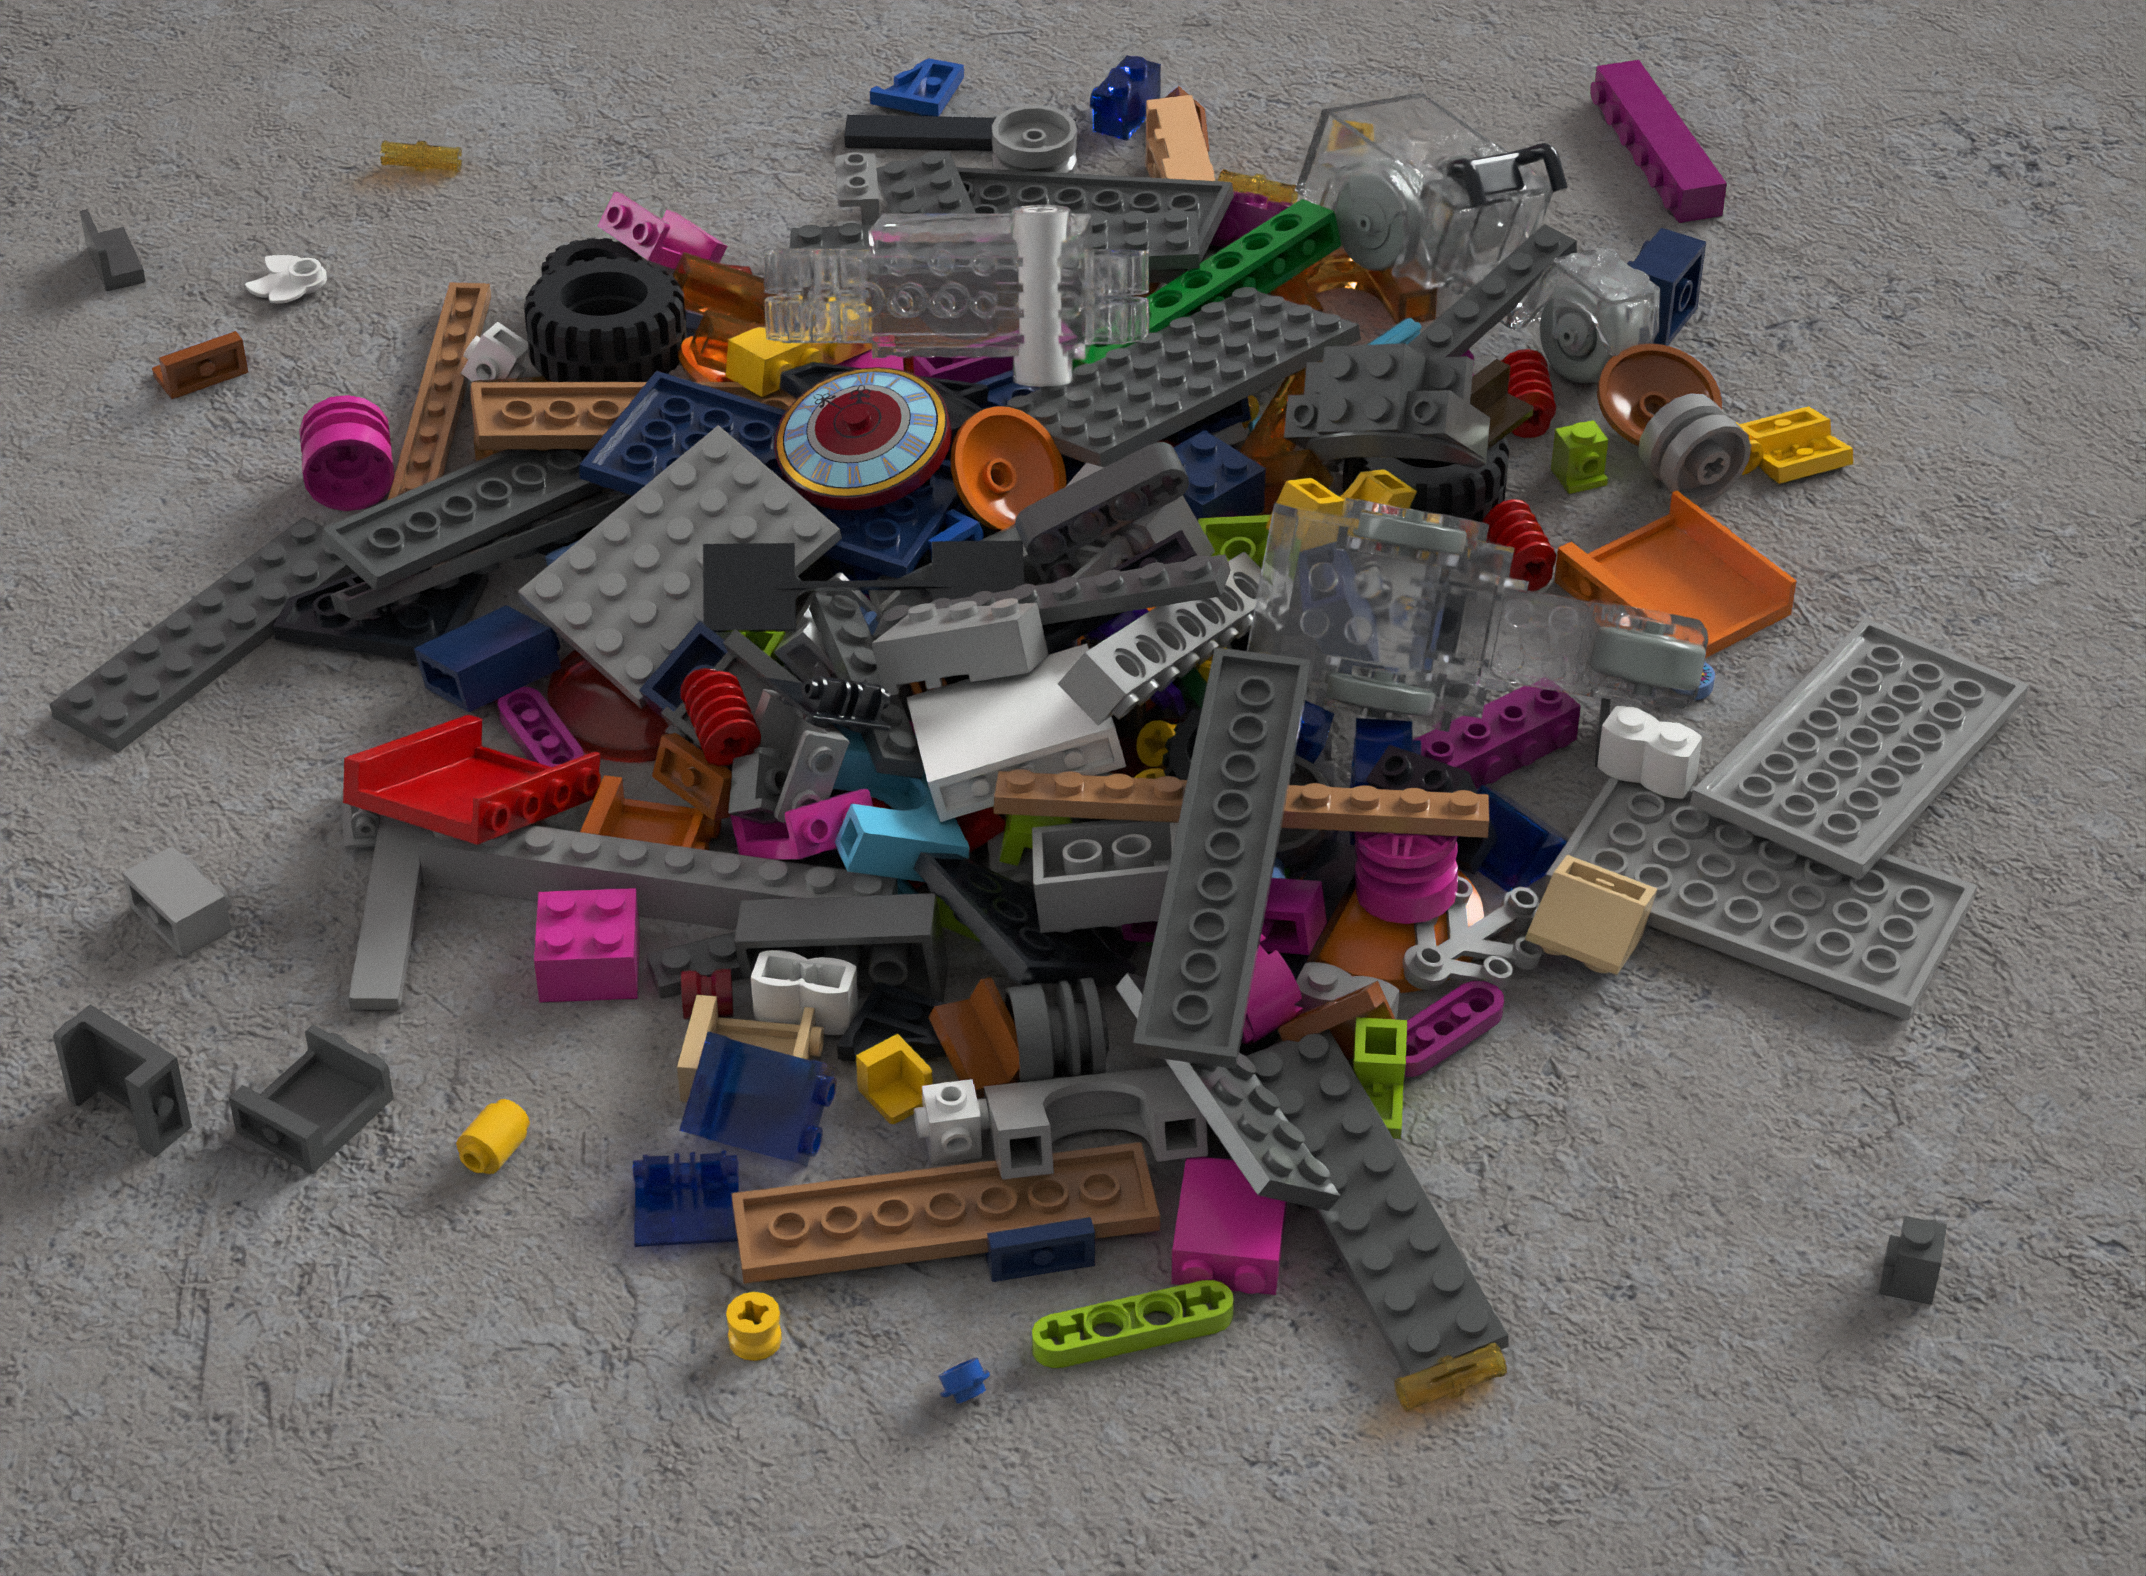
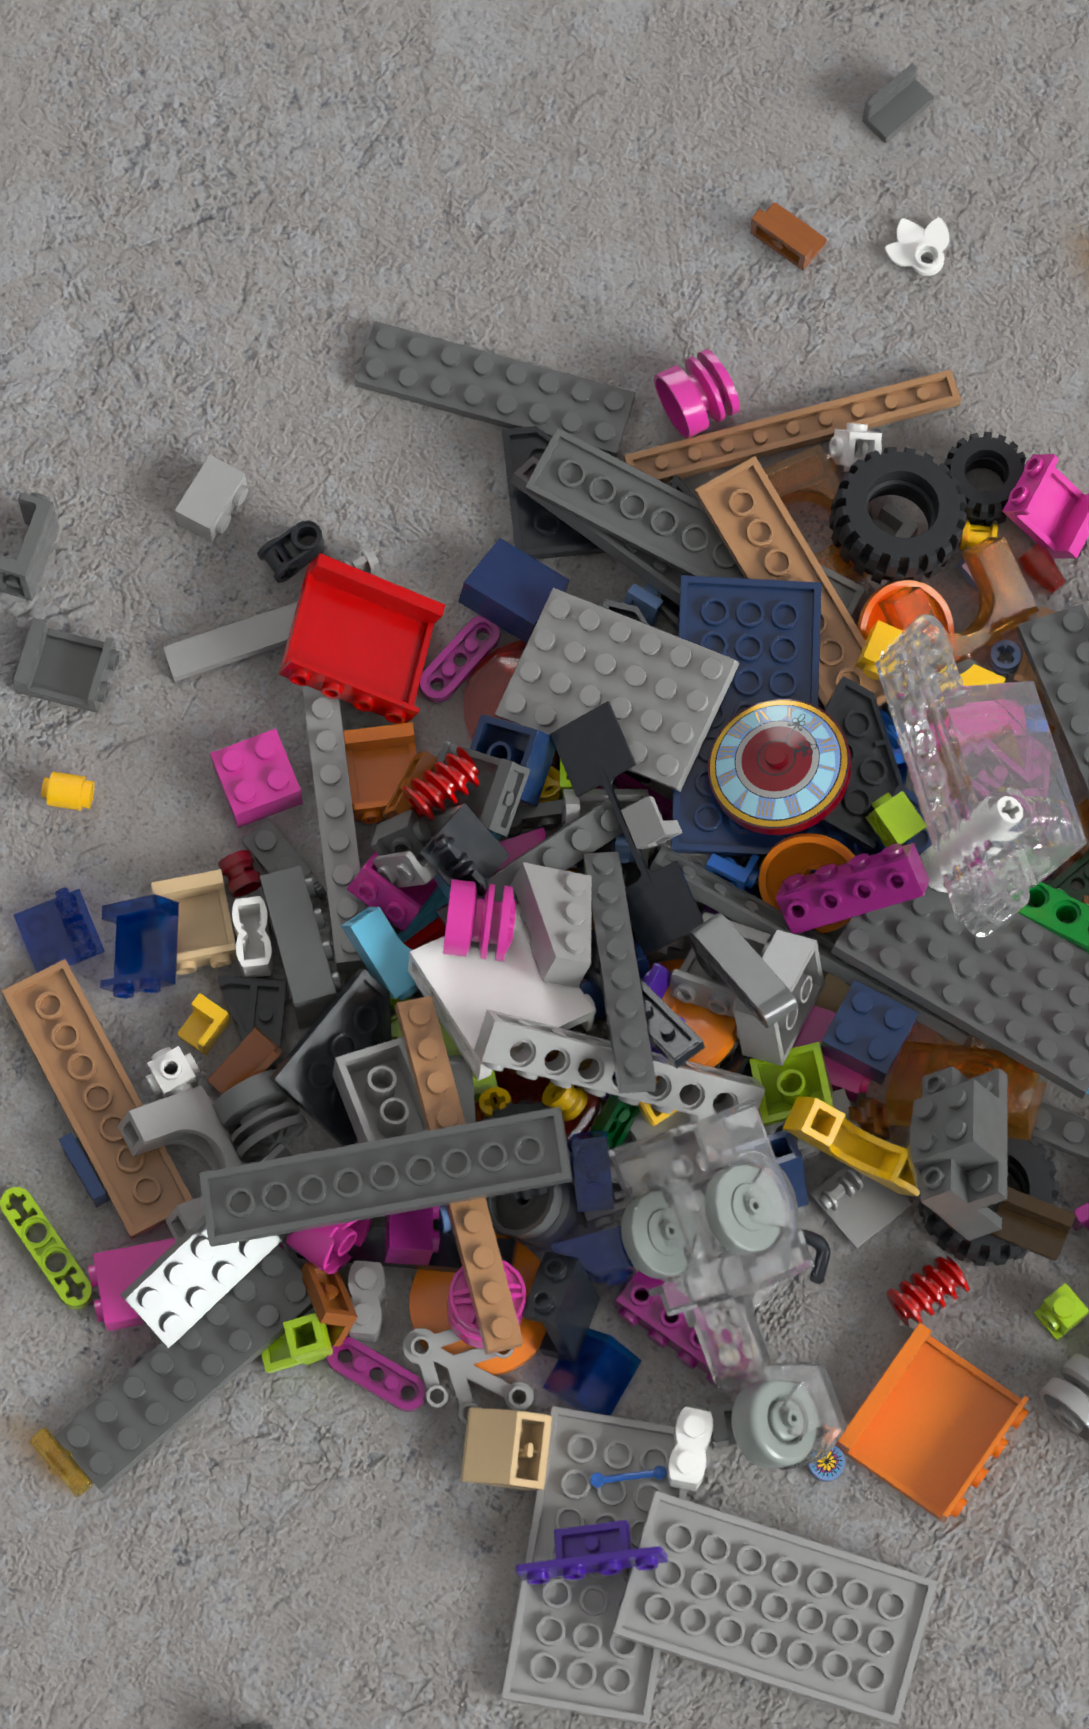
camera: 70 degrees right, 30 degrees up
(300, 840) = (290, 551): none -> black piece
(868, 557) = (647, 824): none -> light grey panel
(928, 690) = (479, 920): none -> dark pink wheel
(983, 391) = (895, 819): none -> lime brick
(1040, 415) = (852, 888): none -> magenta brick
(1657, 852) = (597, 1479): none -> blue hinge
(1749, 859) = (592, 1549): none -> dark purple bracket

